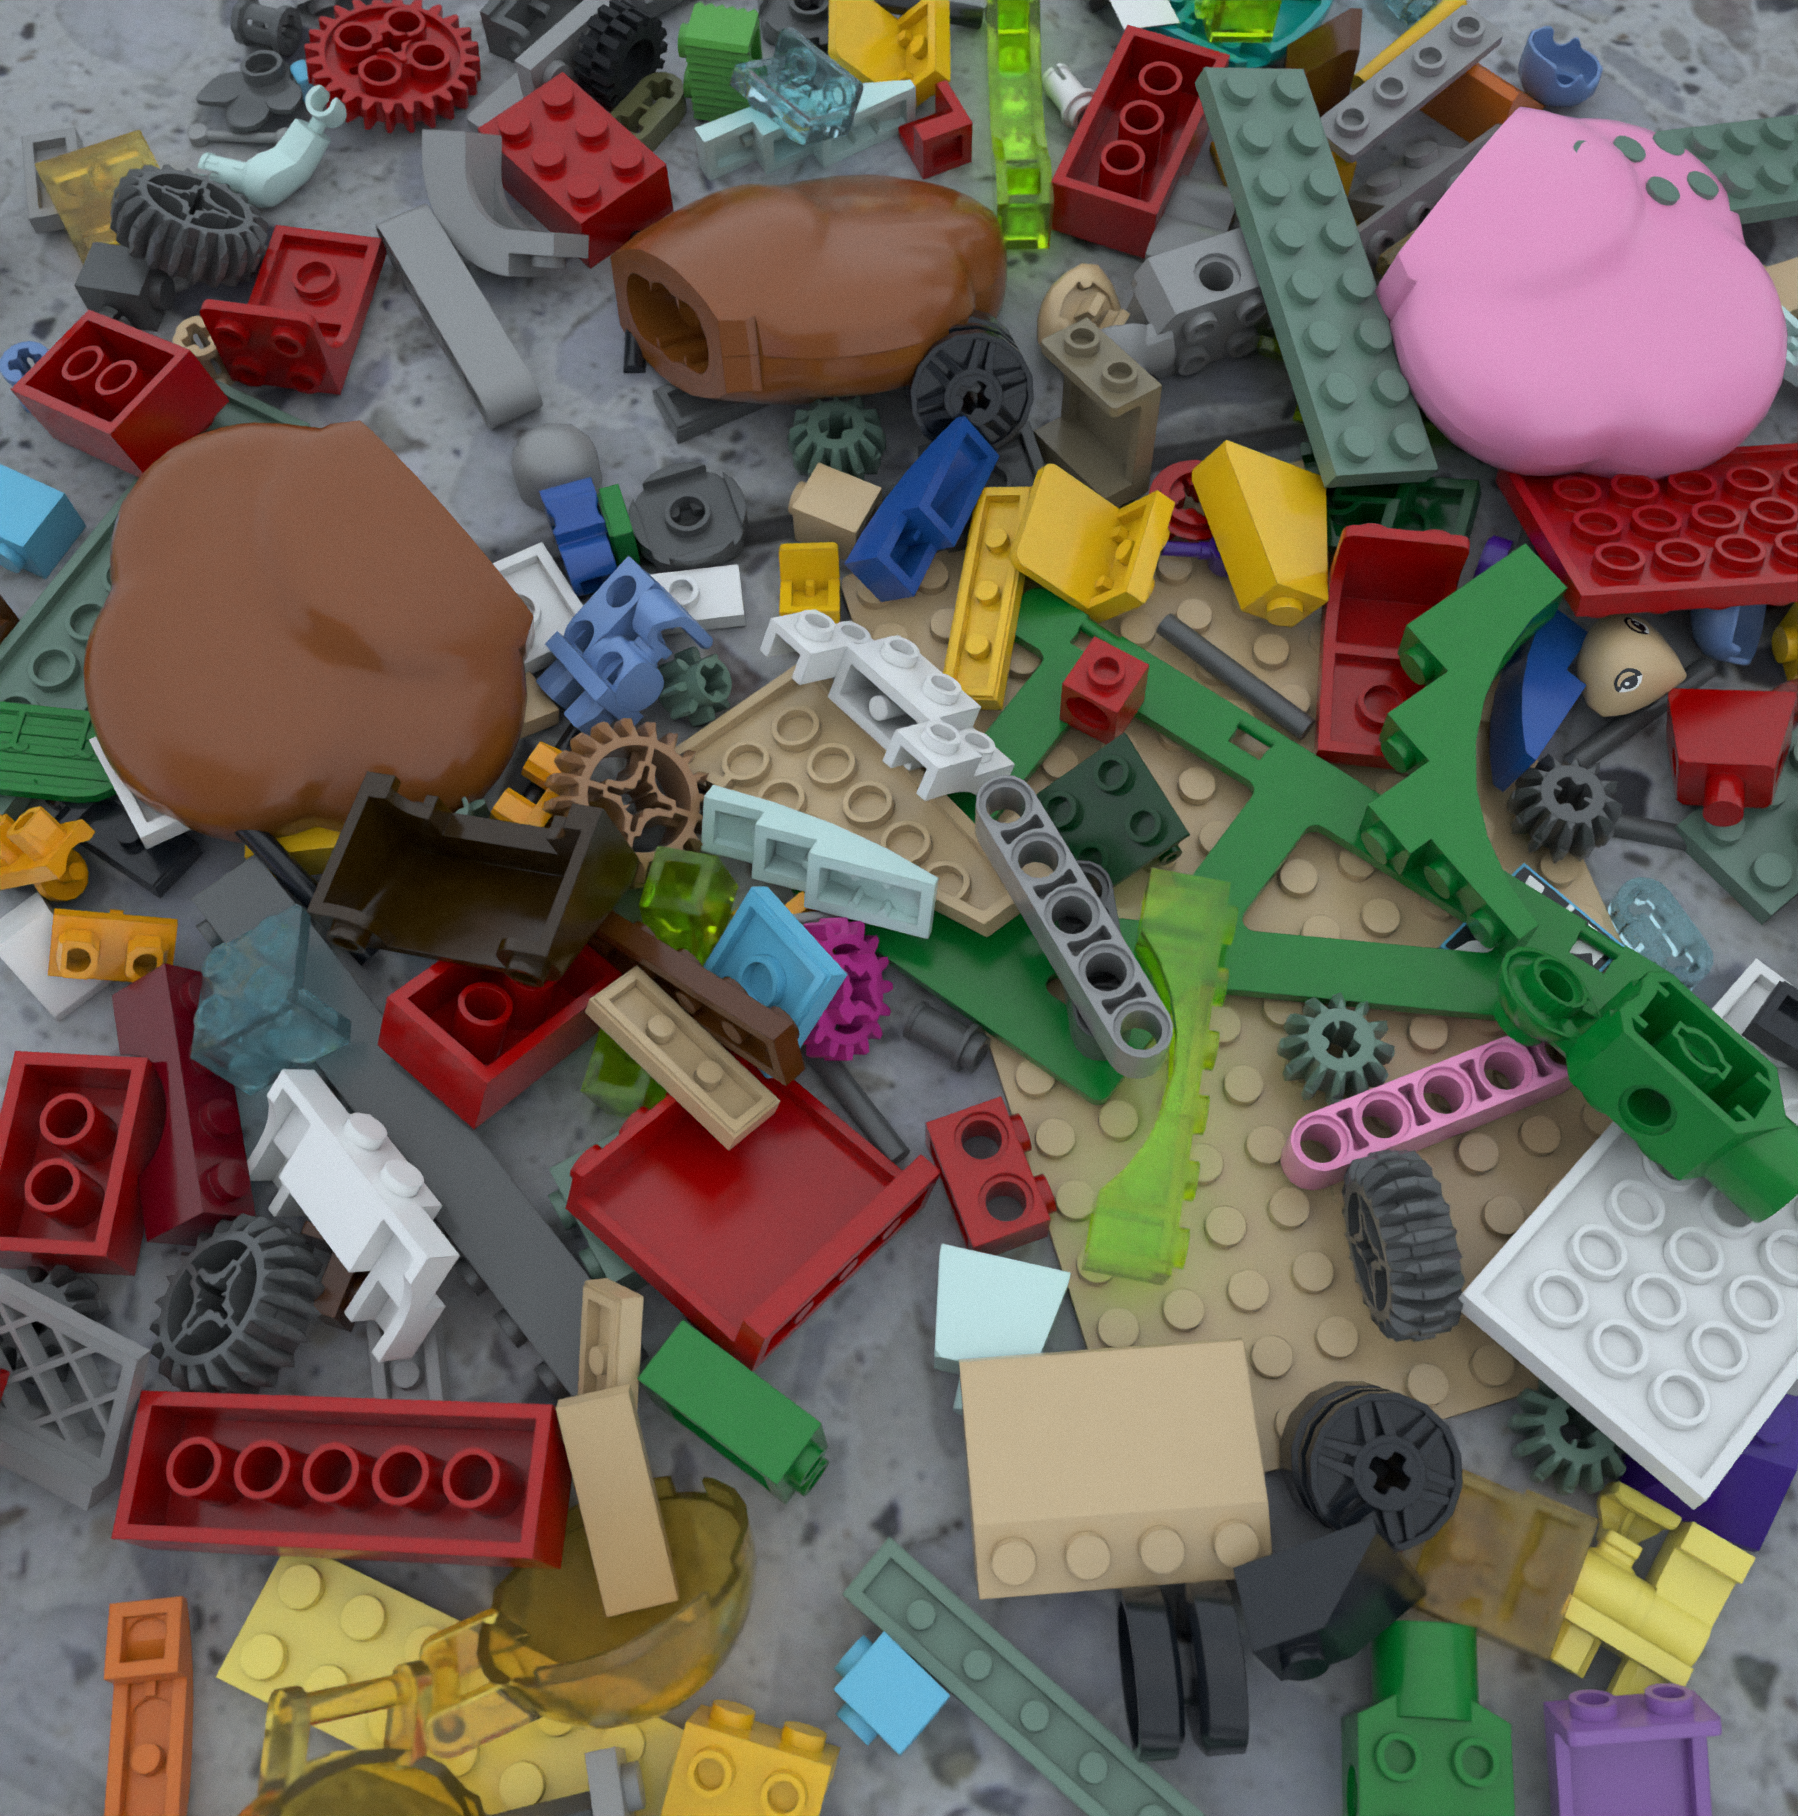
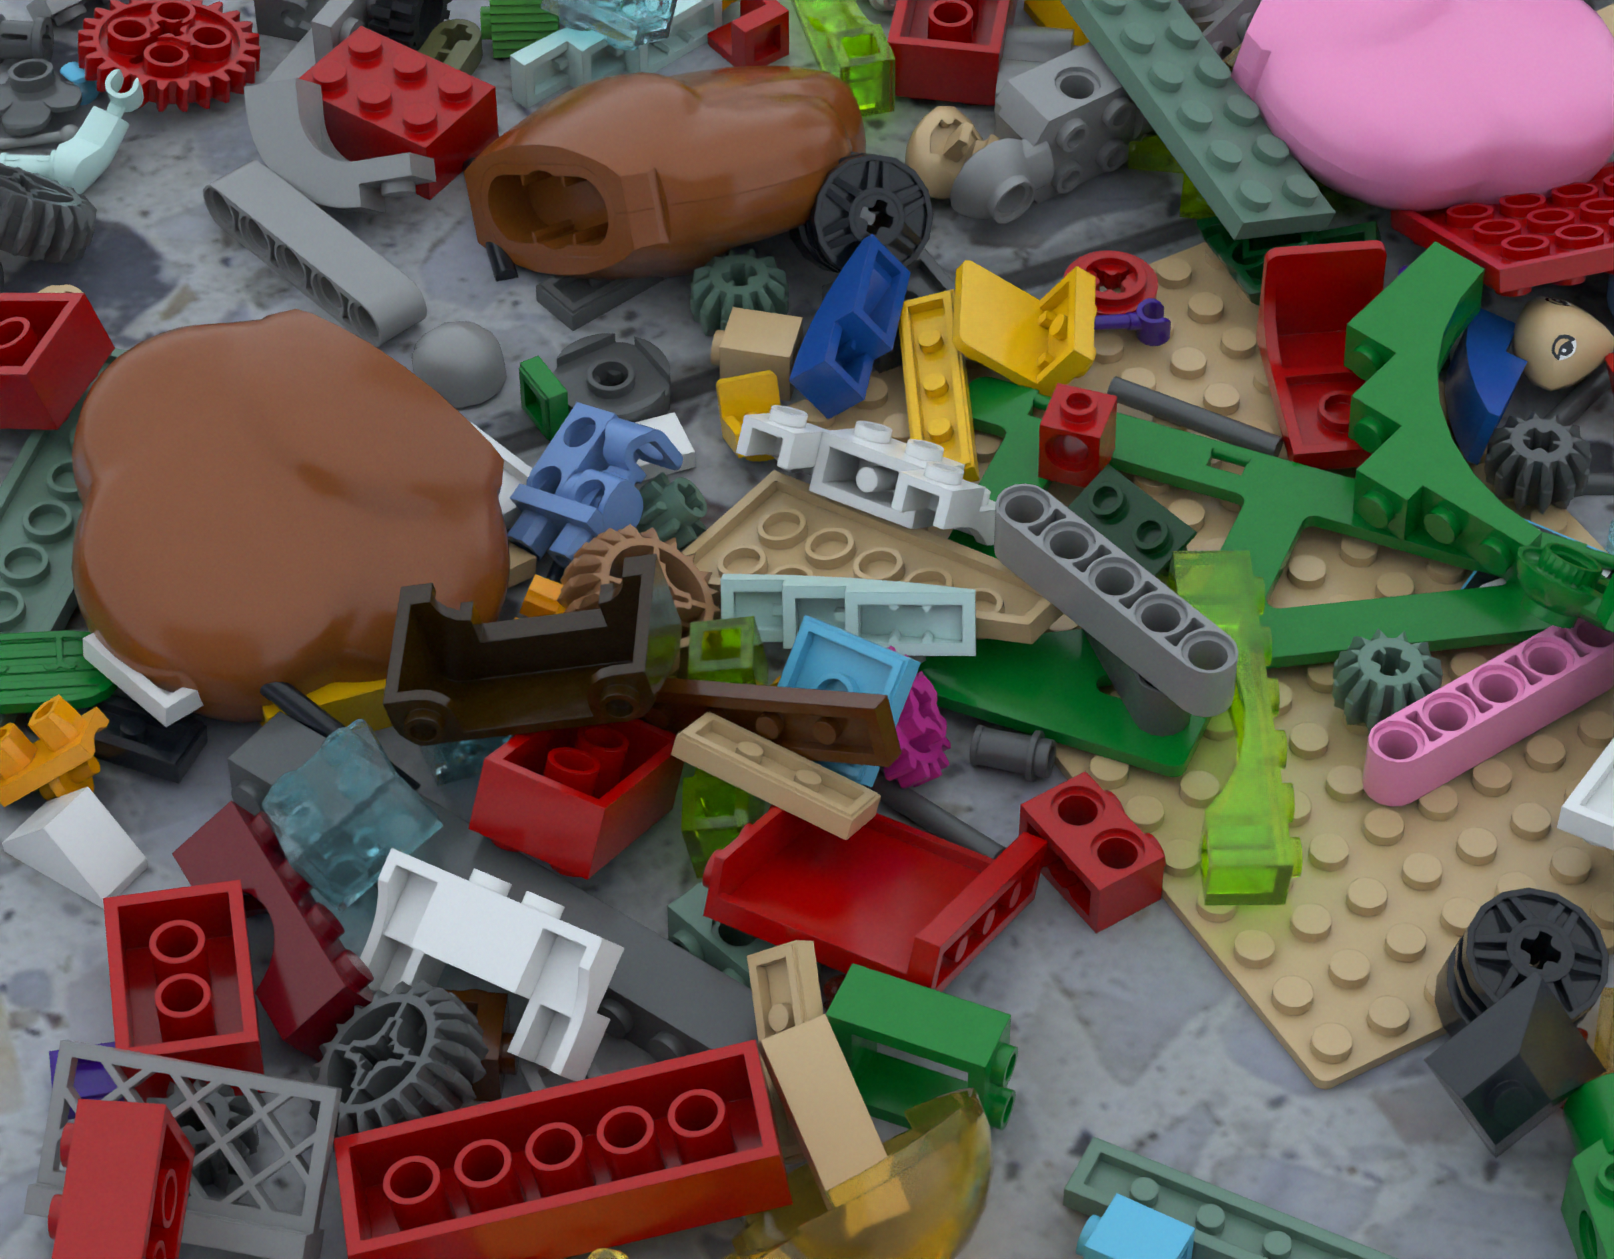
camera: 15 degrees left, 20 degrees down
(109, 945) = (151, 815): light orange hips -> none
(300, 312) = (150, 267): red bracket -> none
(580, 534) = (508, 406): blue leg -> none
(992, 1308) = (1132, 958): light aqua torso -> none
(1105, 414) = (1002, 213): dark tan panel -> none
(1112, 1468) = (1284, 1034): tan slope -> none
(1182, 1669) = (1401, 1162): black wheel -> none
(1267, 531) = (1189, 288): yellow slope -> none
(1402, 1245) = (1497, 802): dark grey gear -> none

